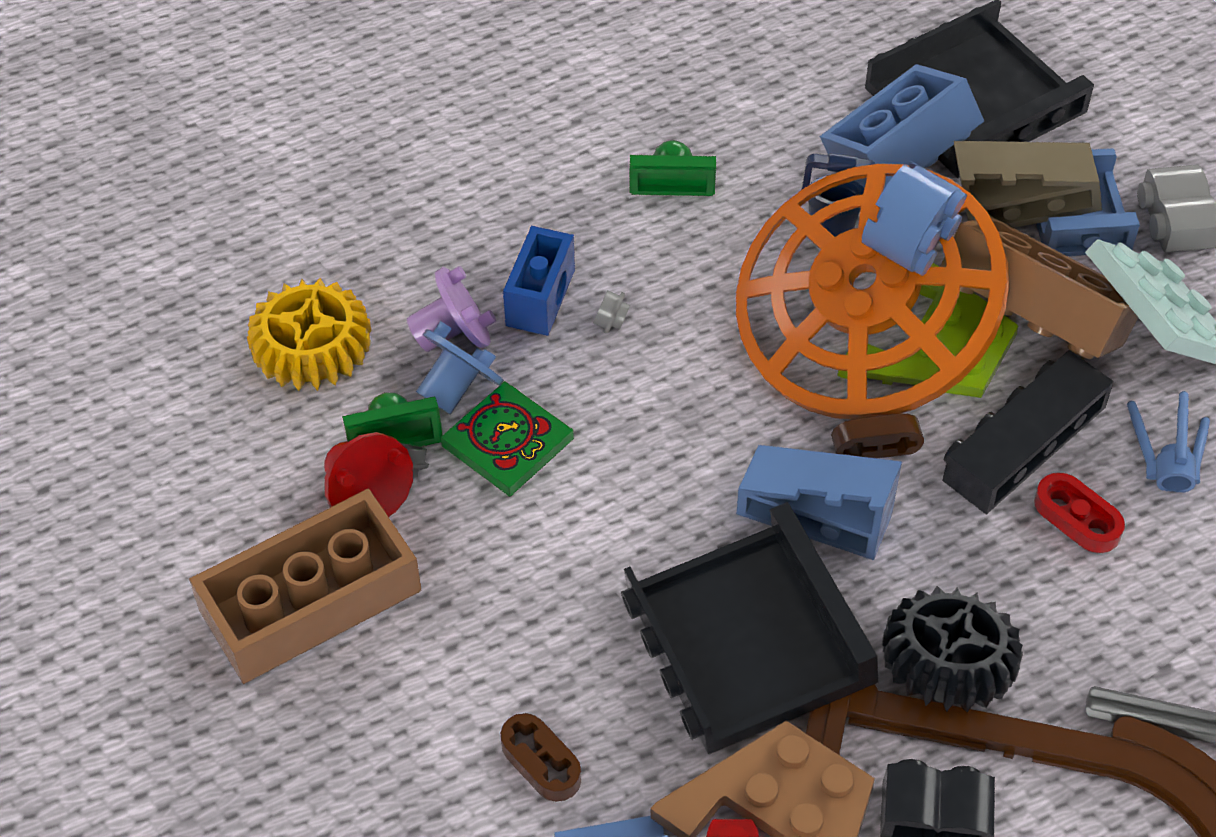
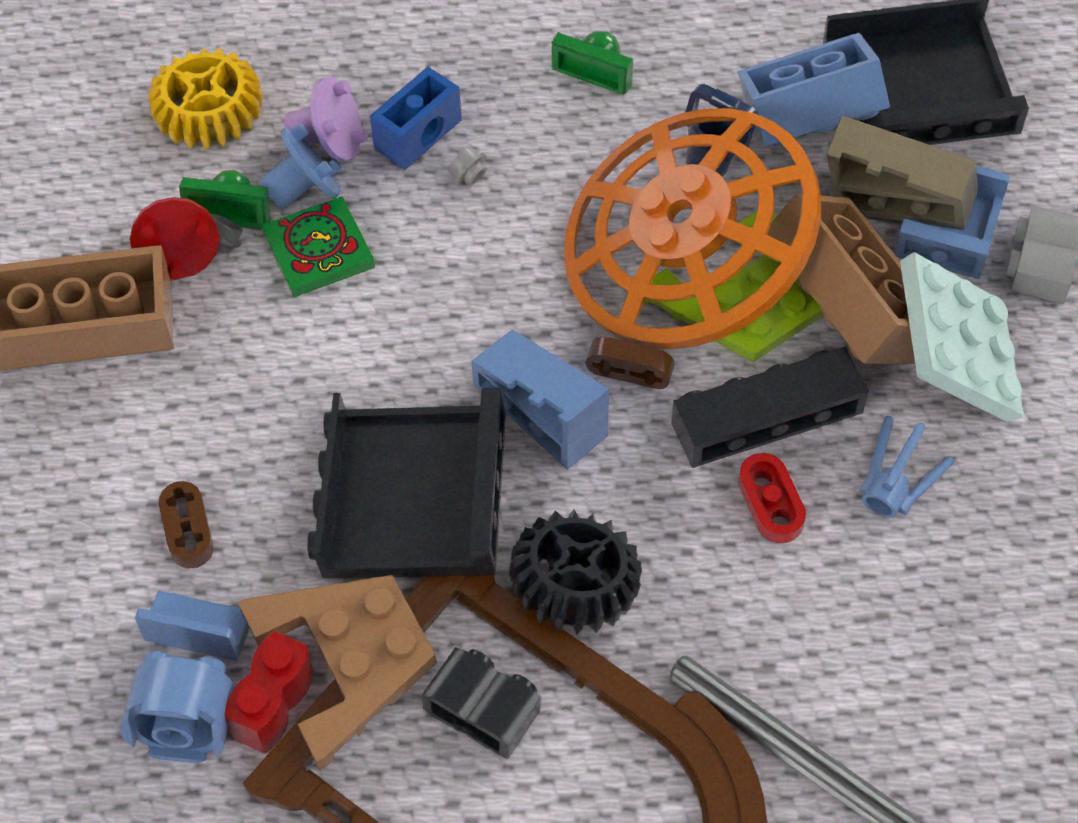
camera: 25 degrees right, 5 degrees up
(913, 216) = (732, 171): medium blue brick -> none

